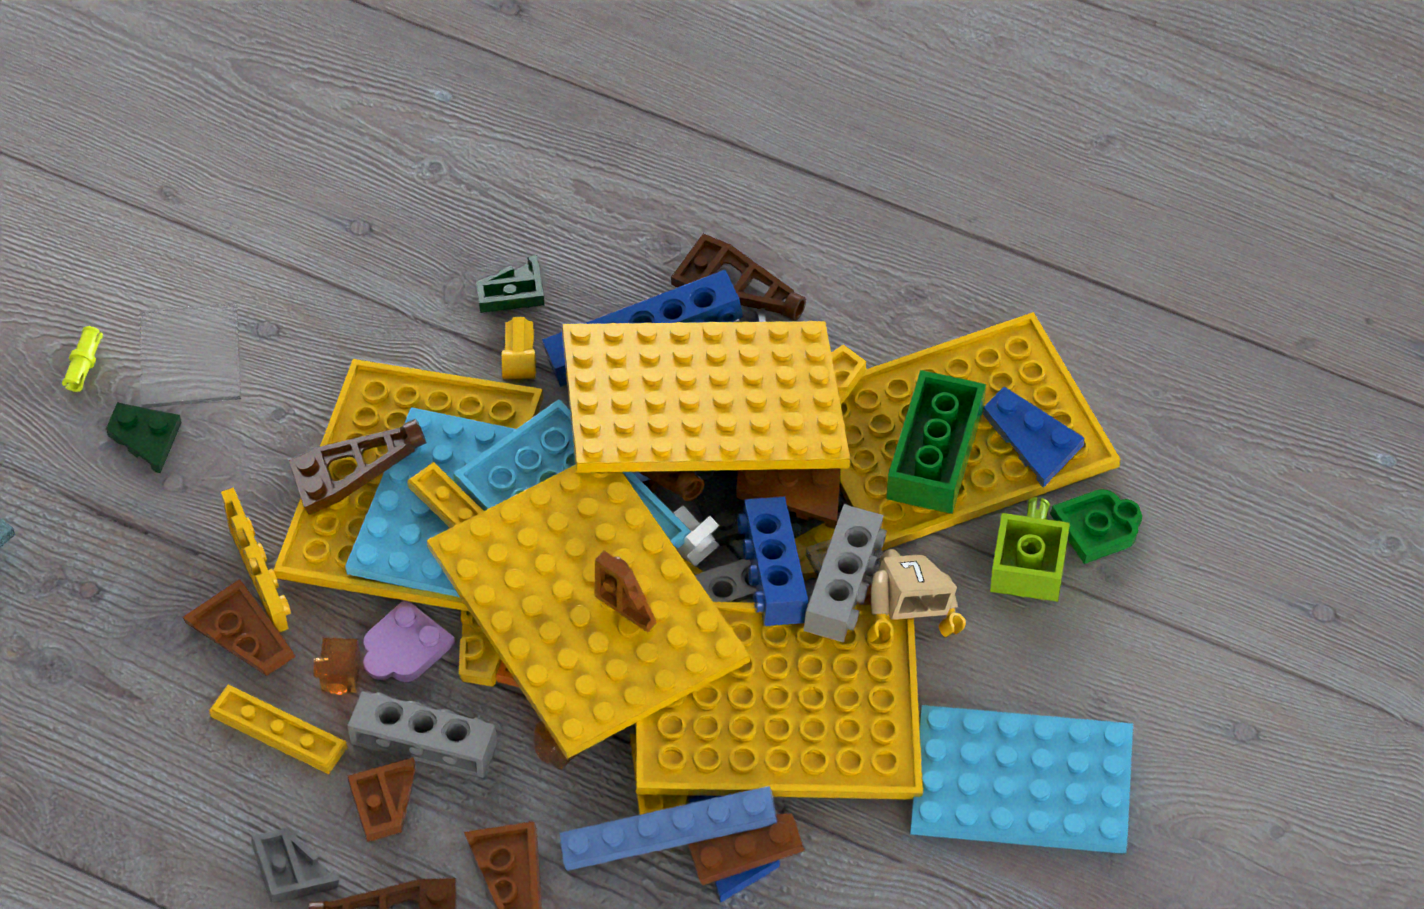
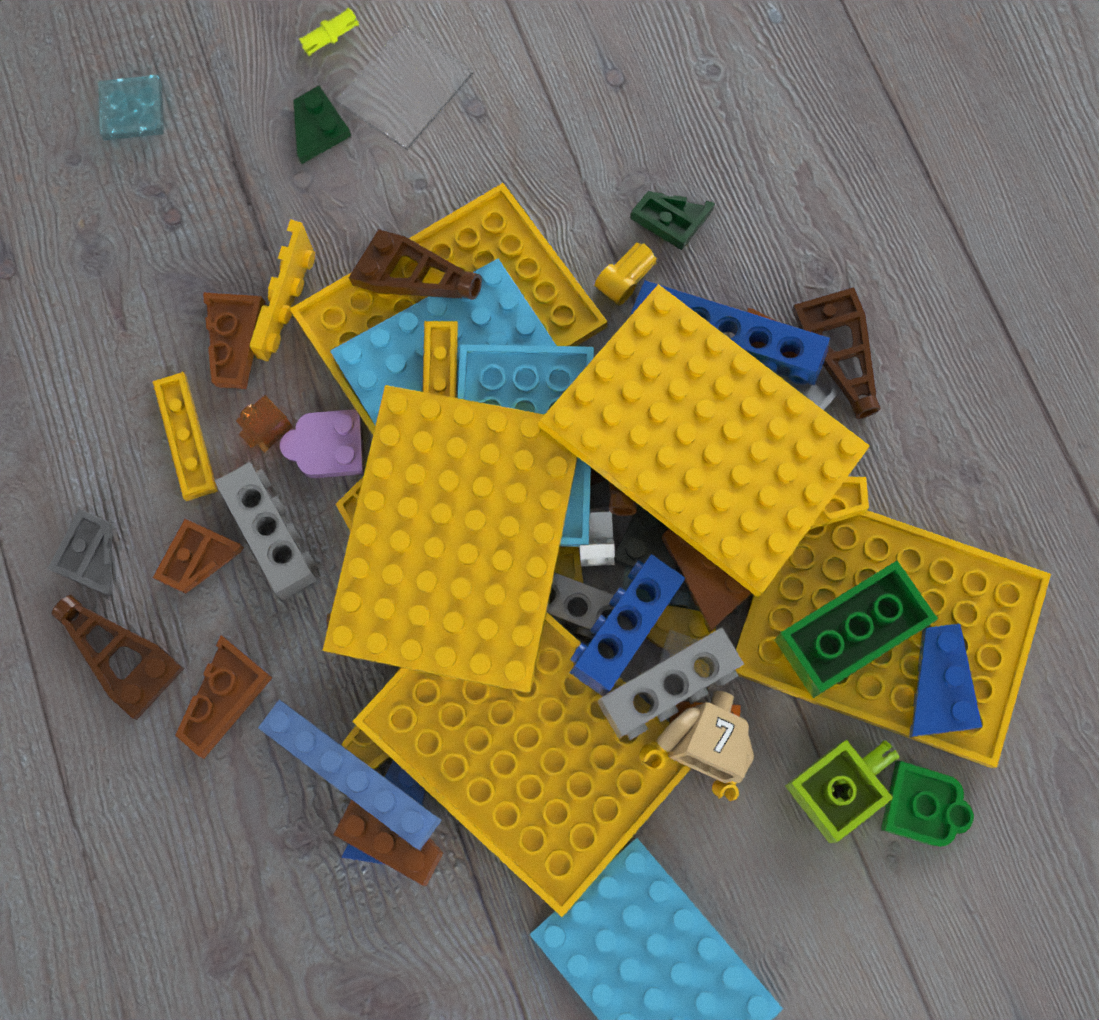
camera: 45 degrees right, 20 degrees up
(621, 591) = (467, 555): dark orange wing -> none

